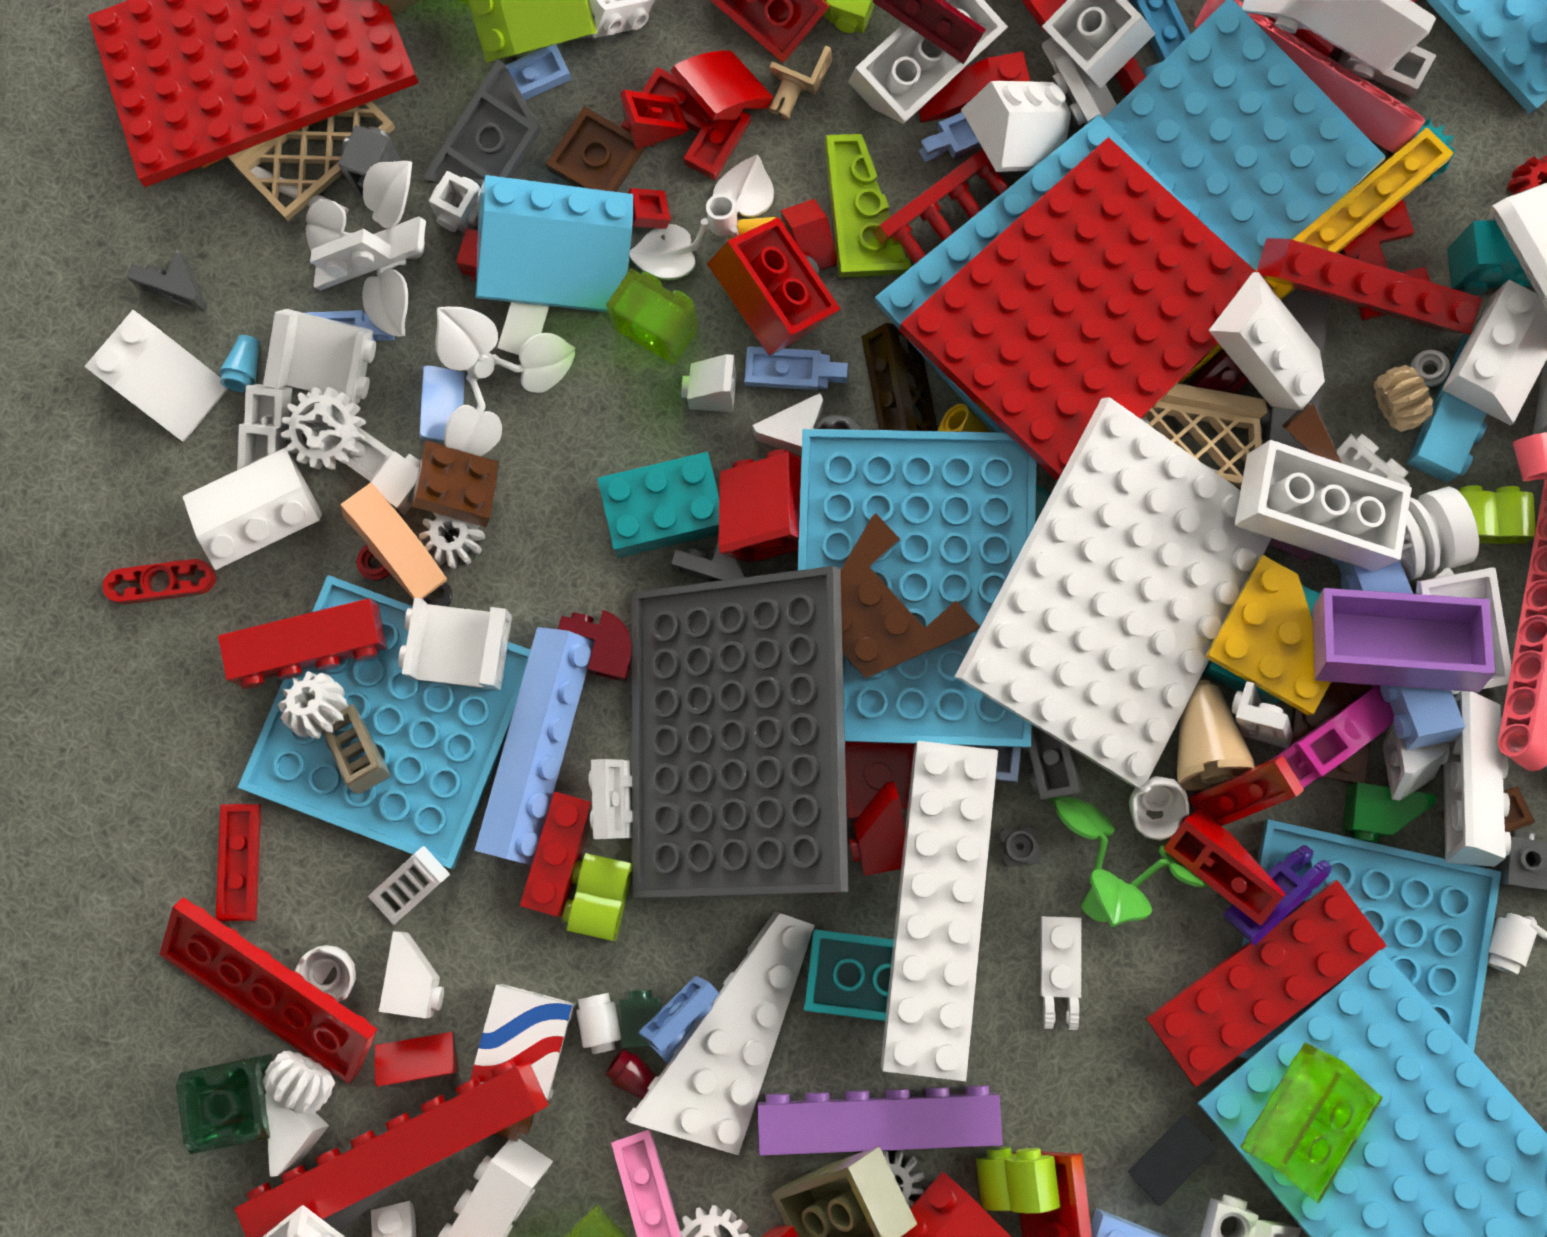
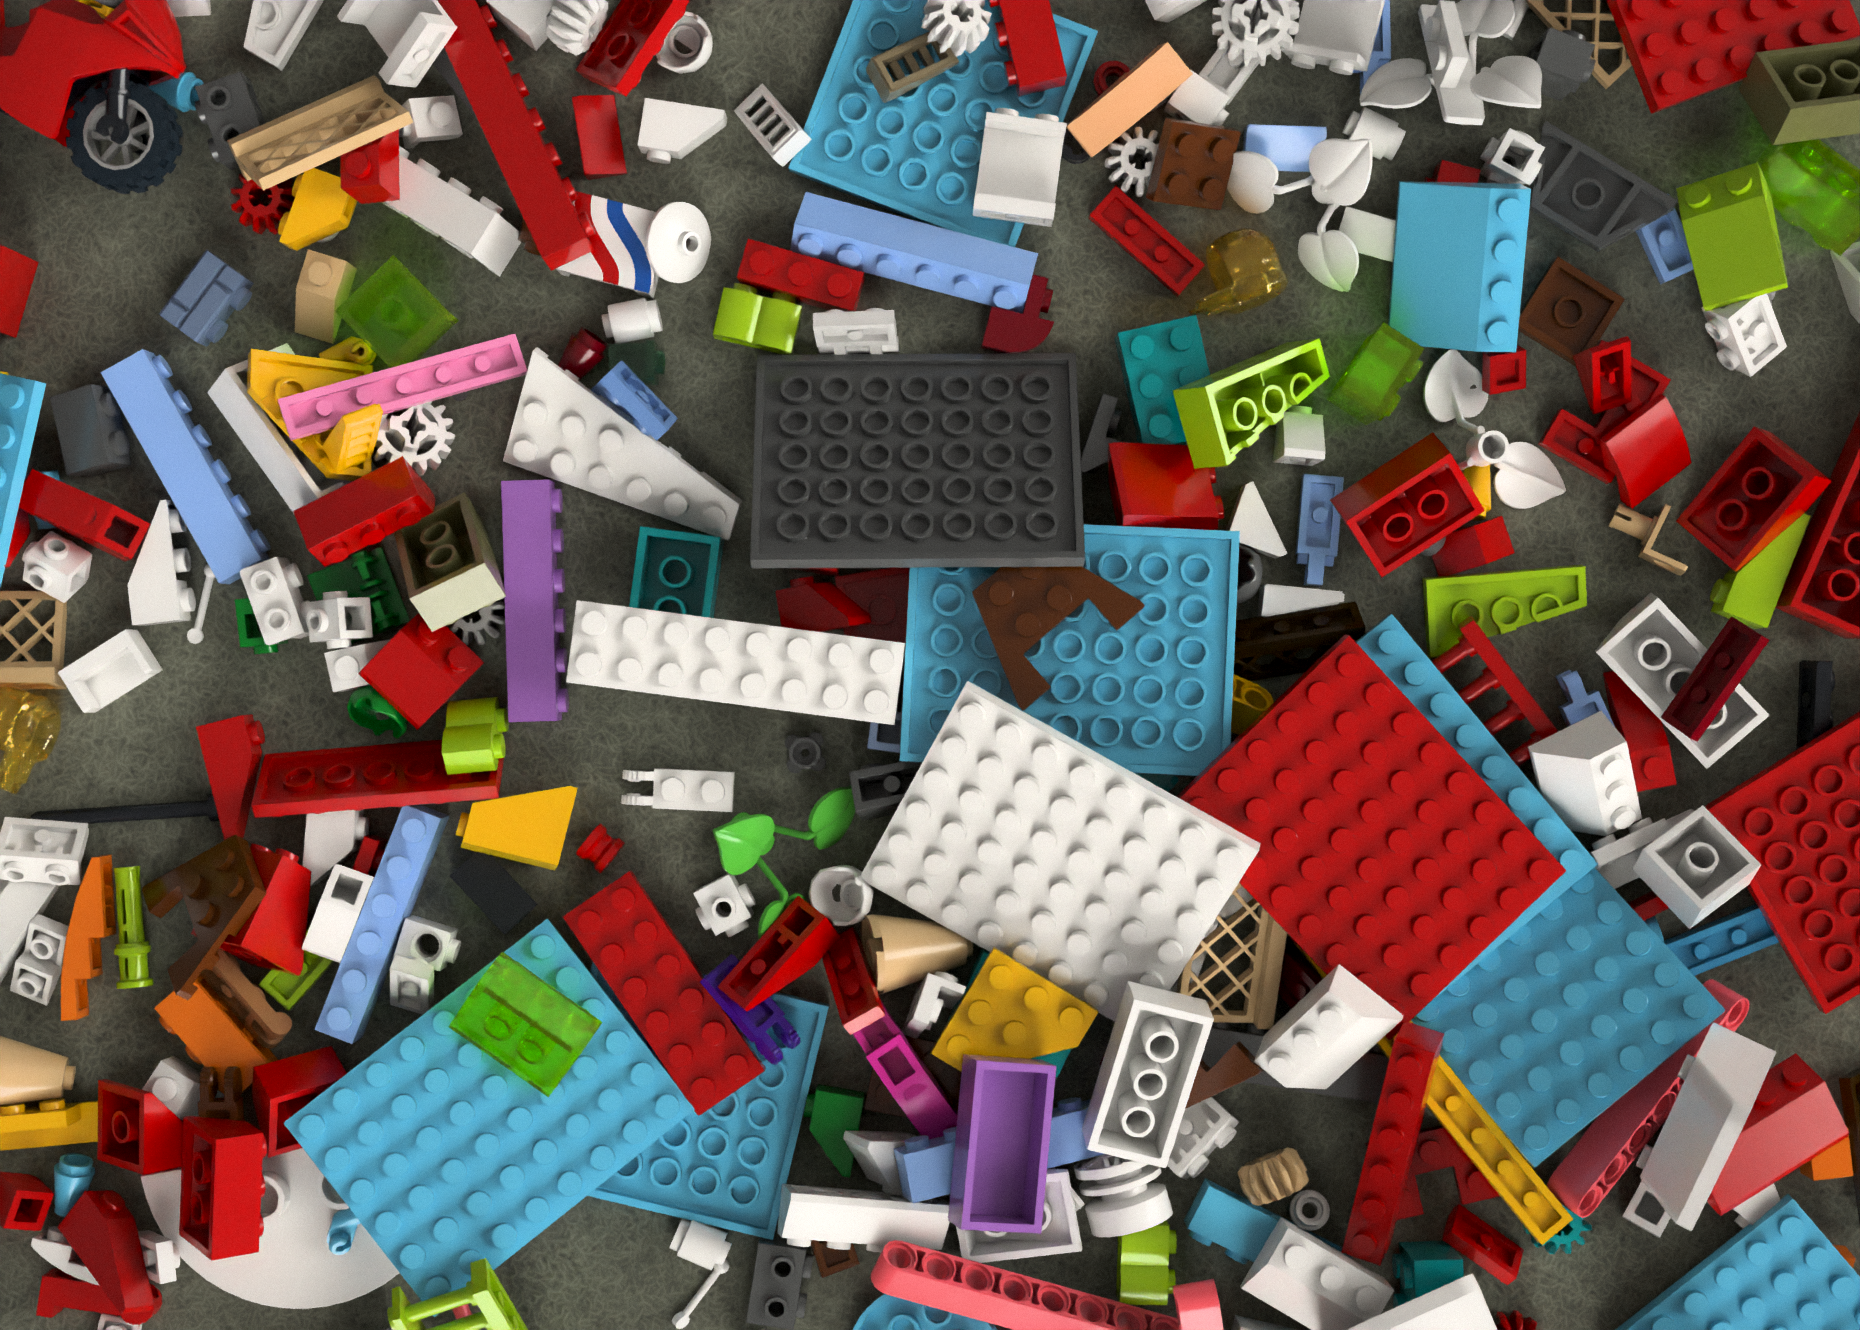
camera: 85 degrees right, 10 degrees up
(424, 325) = (1382, 131): none -> white brick
(521, 977) = (678, 242): none -> white dish
(526, 528) = (1146, 241): none -> red plate
(556, 439) = (1243, 271): none -> clear yellow piece
(676, 429) = (1242, 400): none -> lime wedge
(862, 396) = (1287, 599): none -> white slope
(1108, 1131) = (520, 826): none -> yellow slope
(1123, 1049) = (600, 848): none -> red wheel
(1161, 924) = (728, 890): none -> white brick
(1450, 214) = (1483, 1244): none -> red plate

